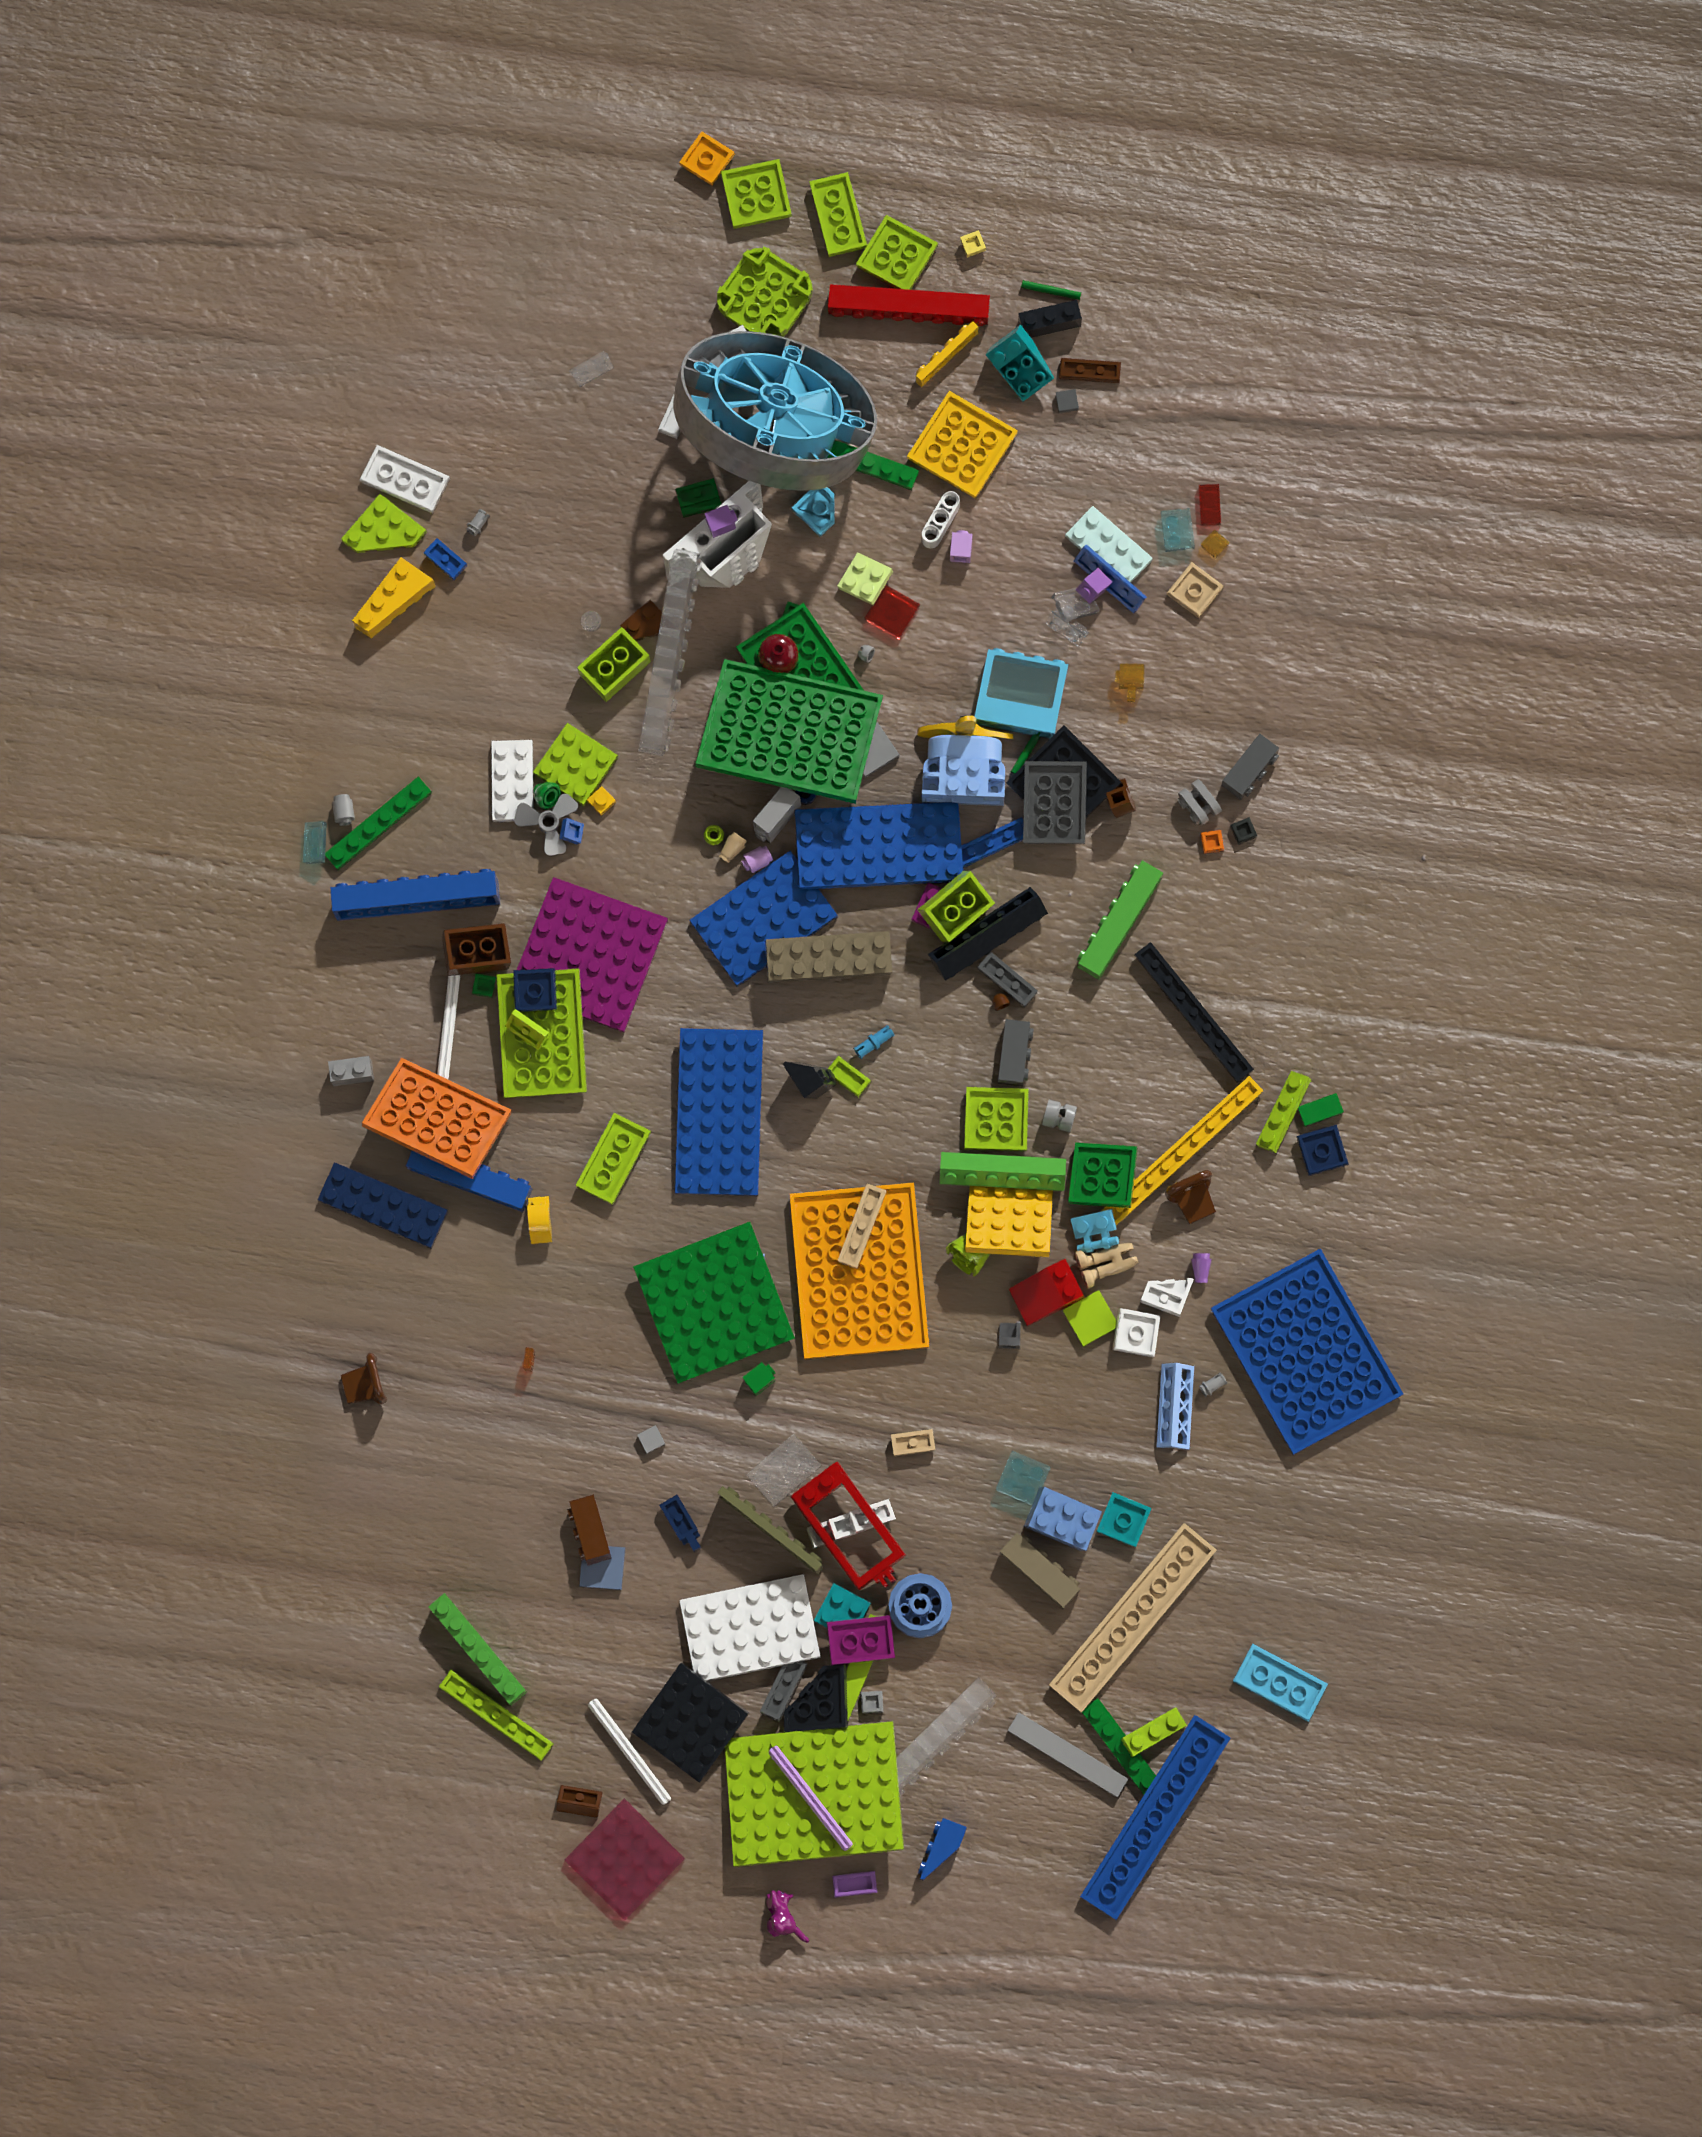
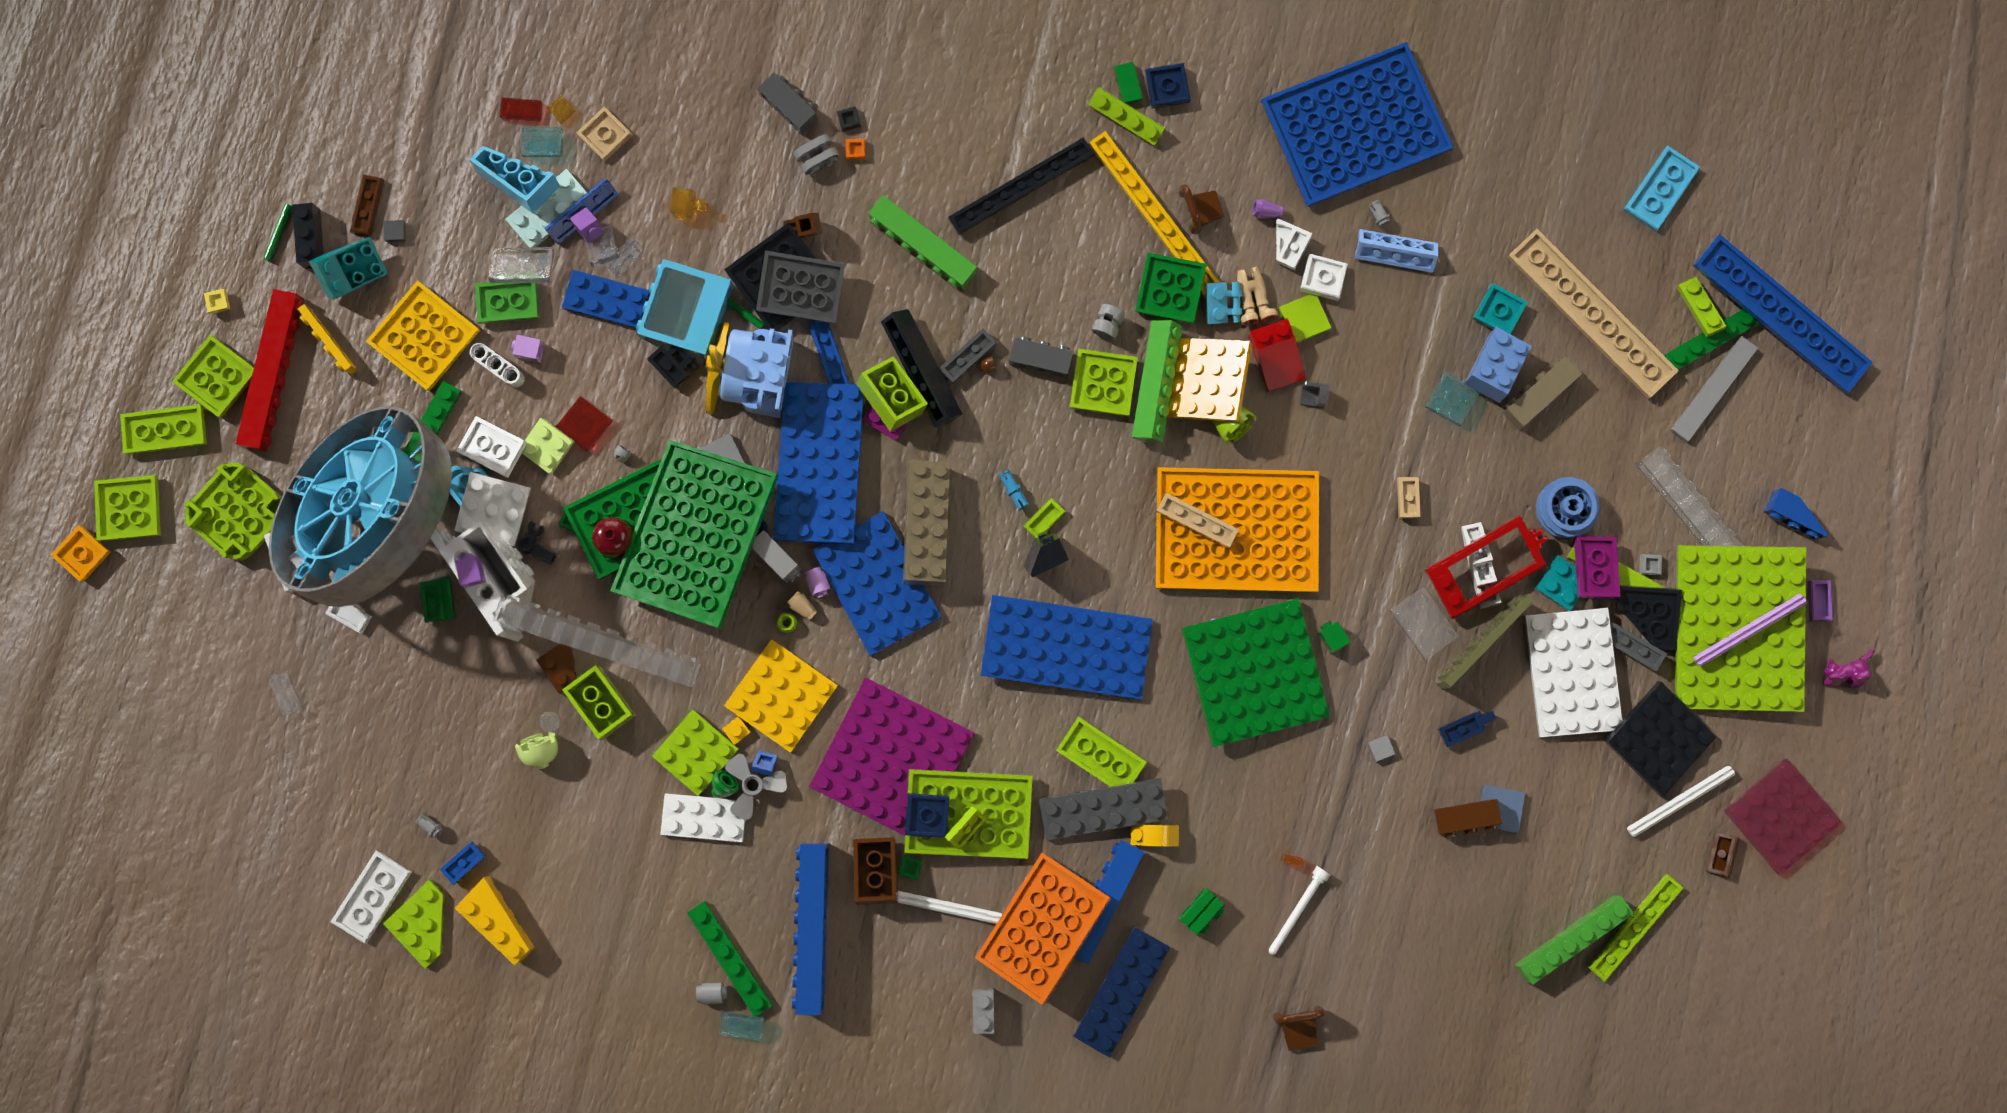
camera: 90 degrees left, 5 degrees up
(468, 1274) = (1201, 912): none -> green brick
(516, 1389) = (1318, 877): none -> white piece
(560, 1166) = (1103, 809): none -> dark grey plate
(561, 613) = (537, 750): none -> yellowish green cylinder
(640, 839) = (781, 695): none -> yellow plate
(762, 576) = (527, 545): none -> black bar
(795, 536) = (495, 504): none -> white plate
(856, 526) = (491, 446): none -> white plate
(959, 686) = (669, 367): none -> black plate
(1008, 520) = (506, 302): none -> bright green plate
(1022, 614) = (605, 299): none -> blue plate
(1045, 528) = (521, 265): none -> clear plate
(1130, 513) = (519, 181): none -> medium azure wedge

